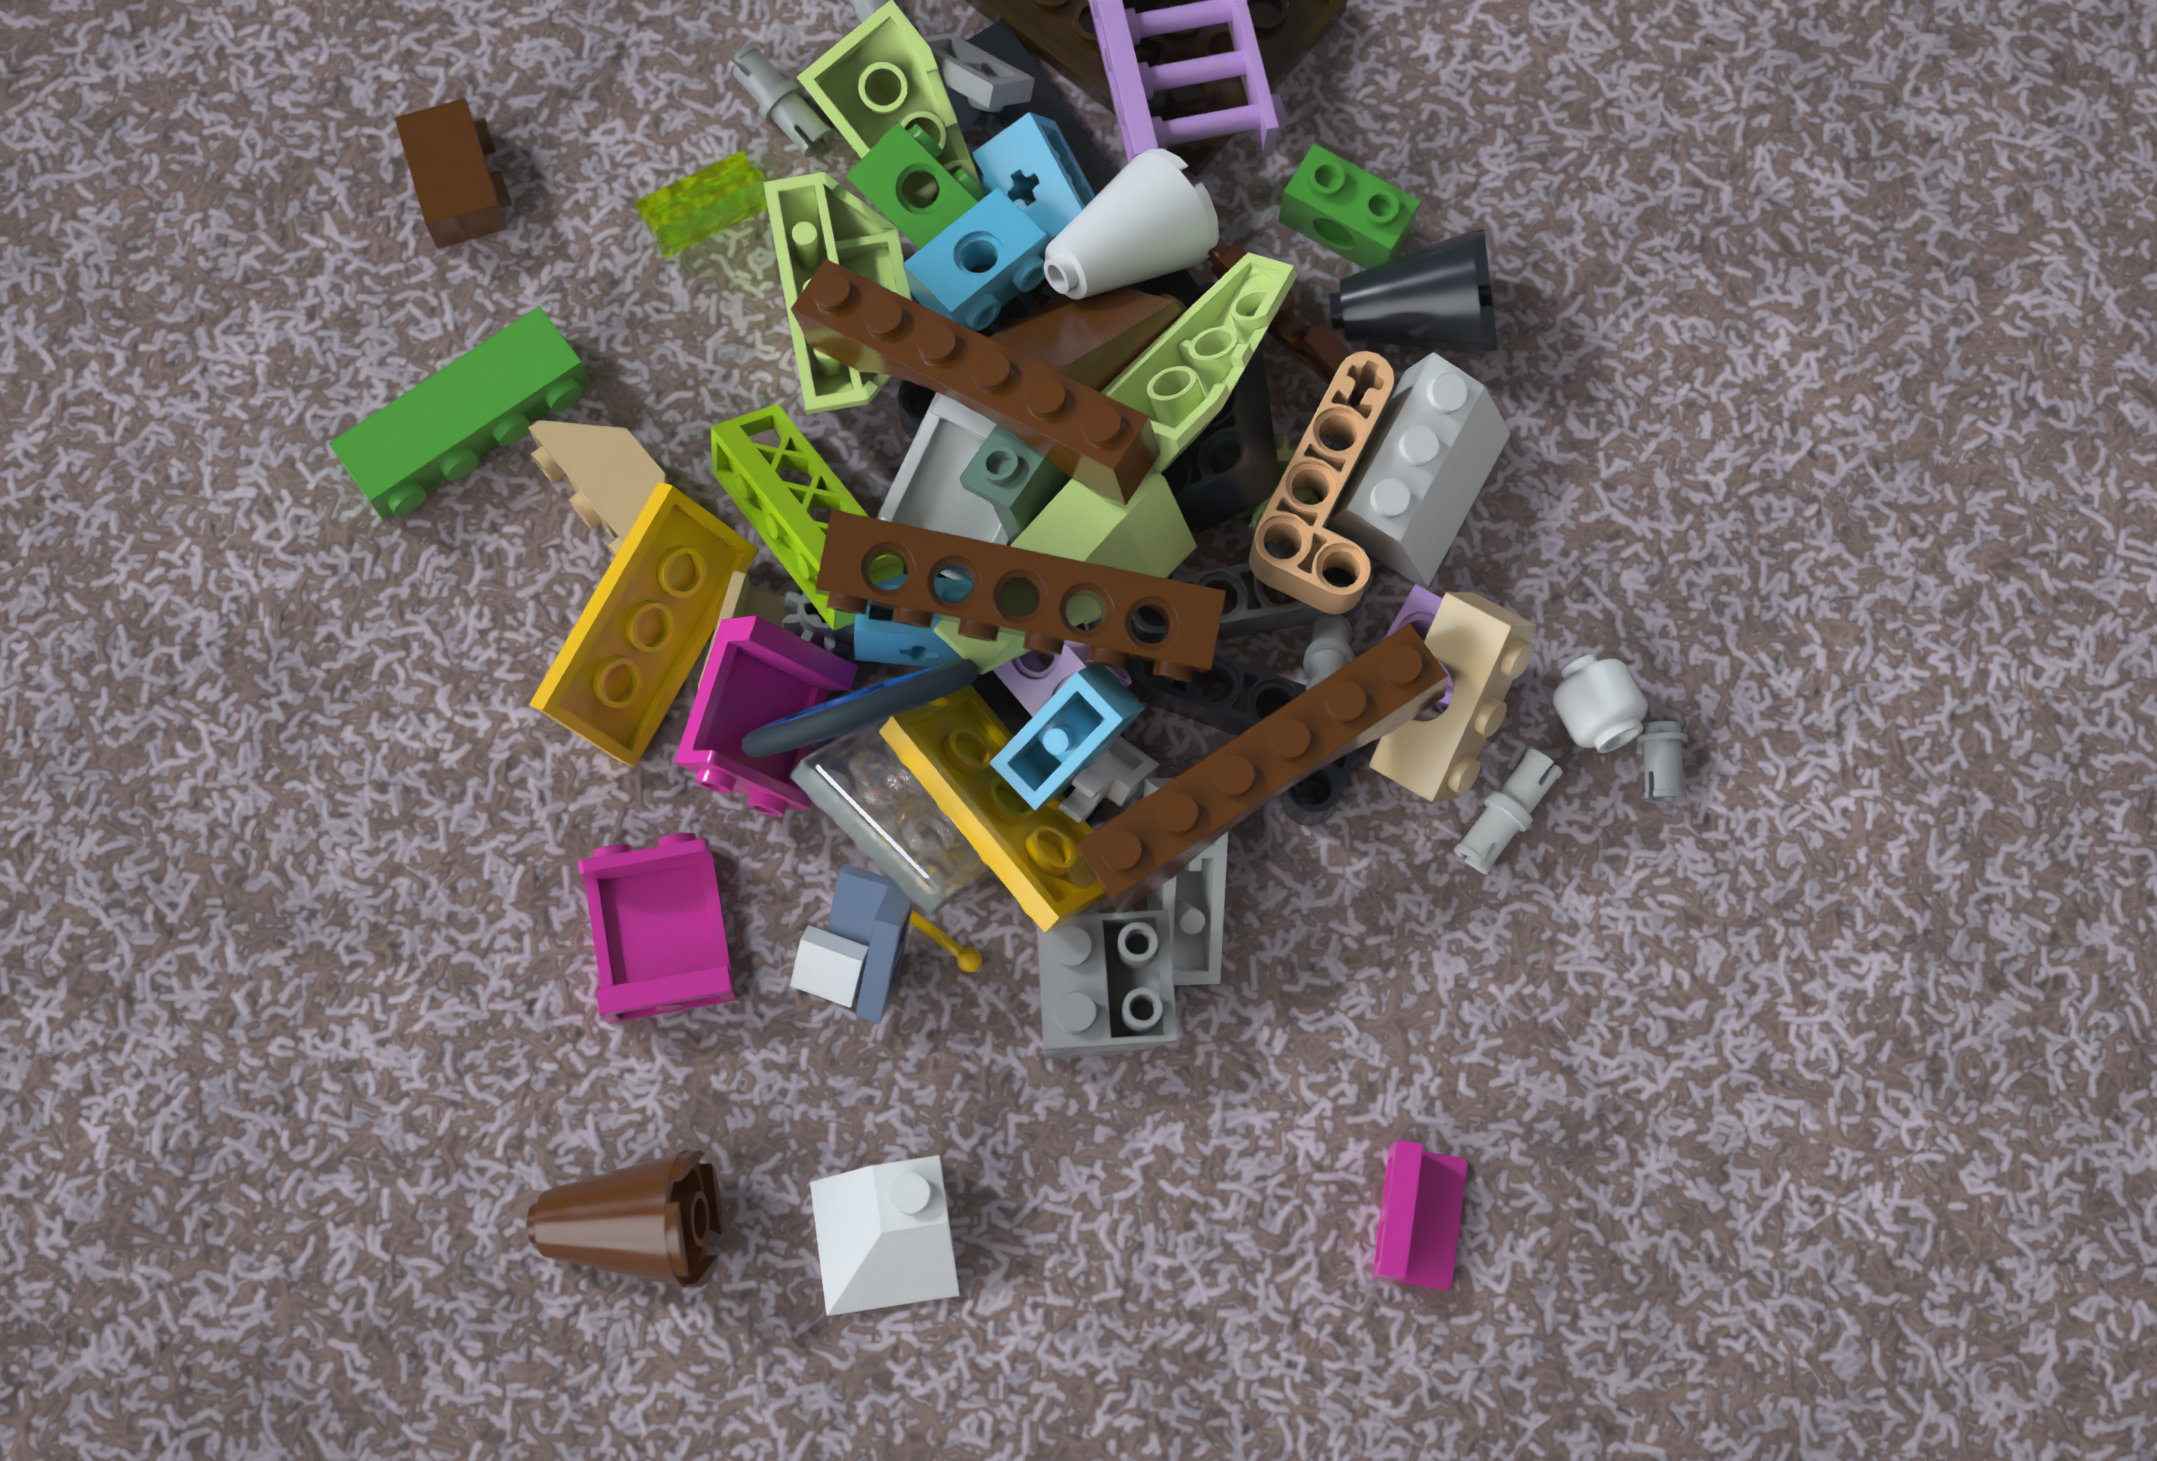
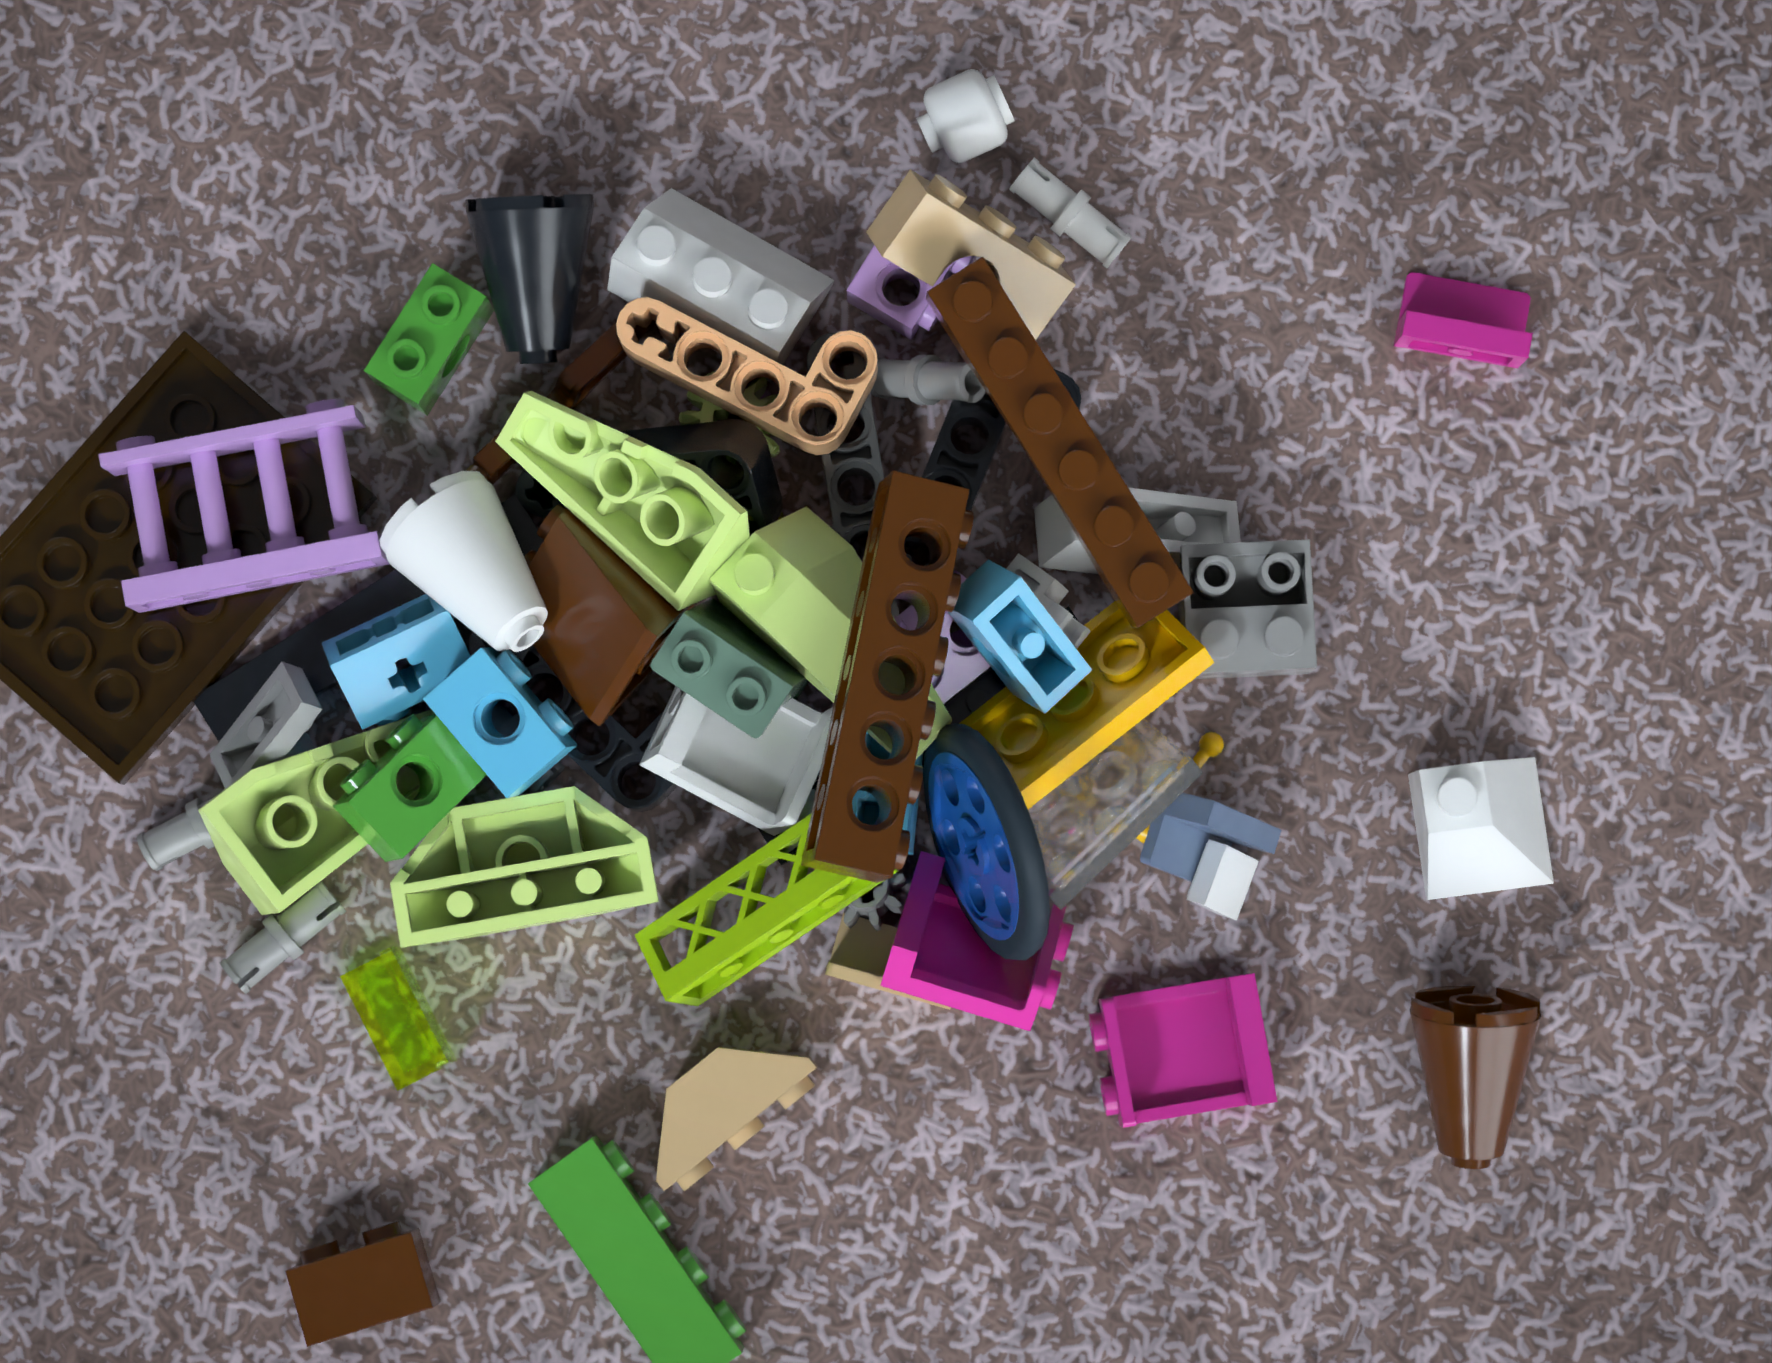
camera: 85 degrees left, 10 degrees up
(644, 626) = (880, 1064): yellow plate -> none
(1057, 416) = (654, 719): reddish brown arch -> none
(1663, 761) = (1021, 59): light grey pin -> none

